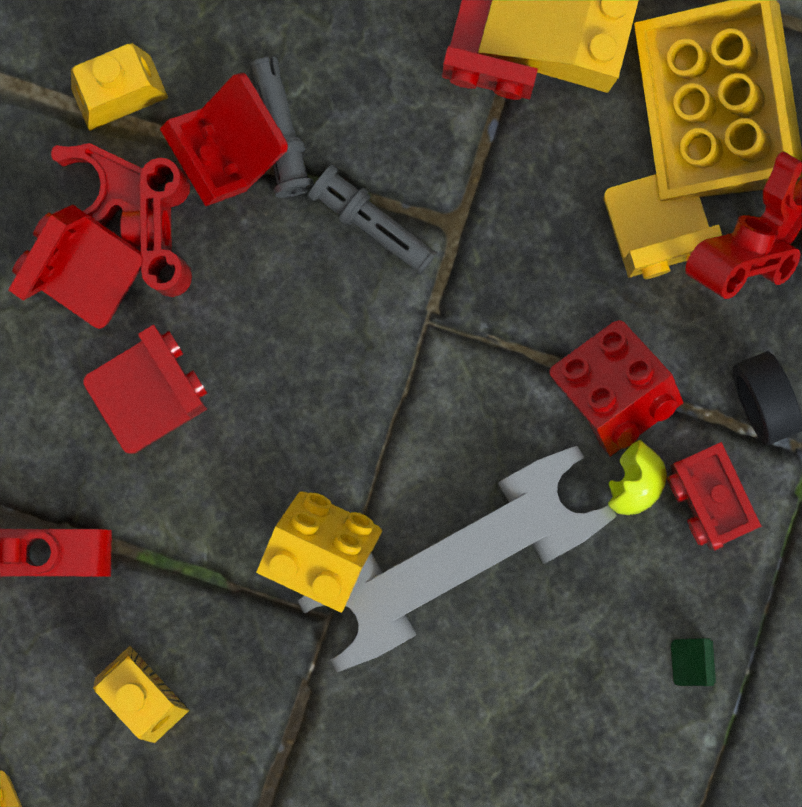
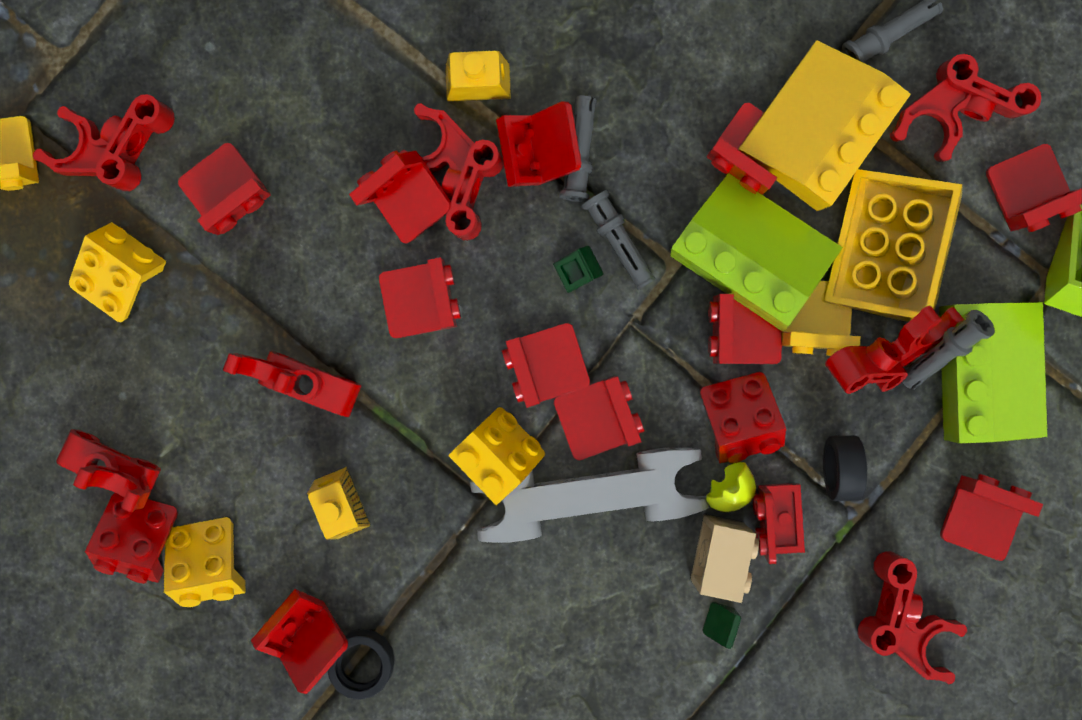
camera: 20 degrees right, 5 degrees up
(334, 277) = (578, 268): none -> dark green slope
(339, 412) = (546, 364): none -> red bracket
(431, 455) = (598, 418): none -> red bracket
(548, 172) = (755, 252): none -> lime slope
(575, 273) = (741, 334): none -> red bracket
(660, 570) = (724, 558): none -> tan brick

